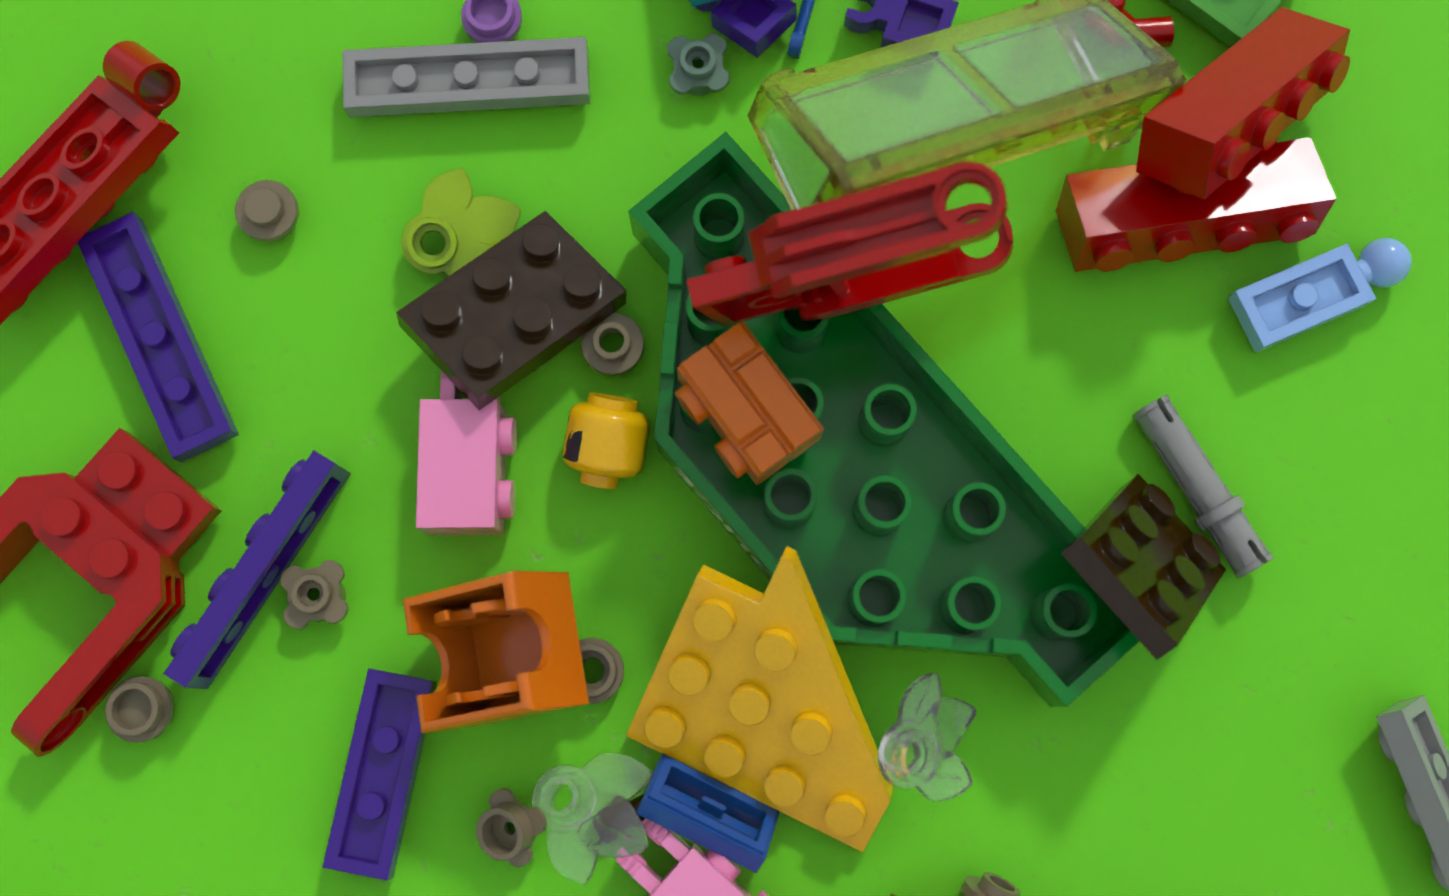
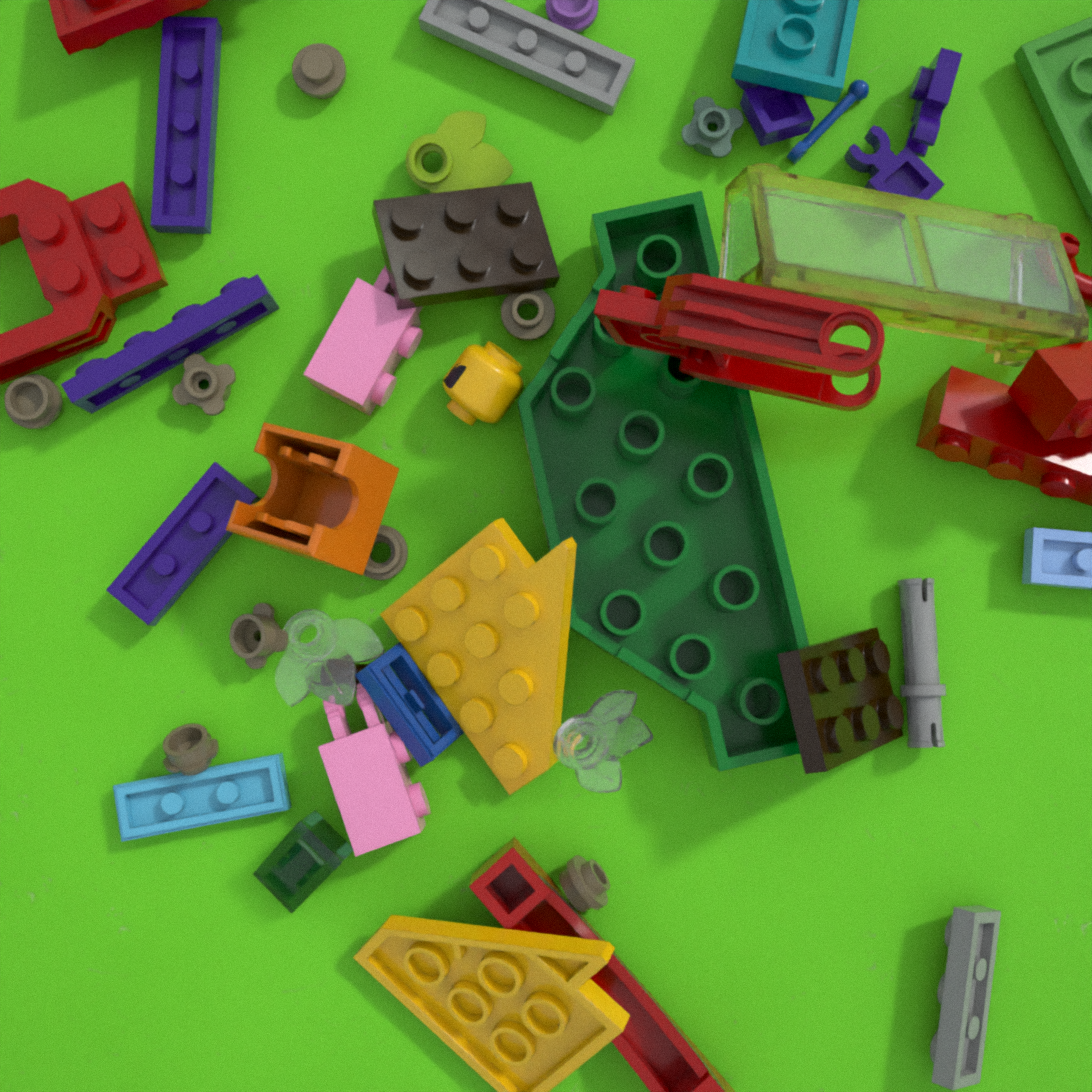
camera: 25 degrees right, 5 degrees up
(747, 405) = (601, 412): orange brick -> none

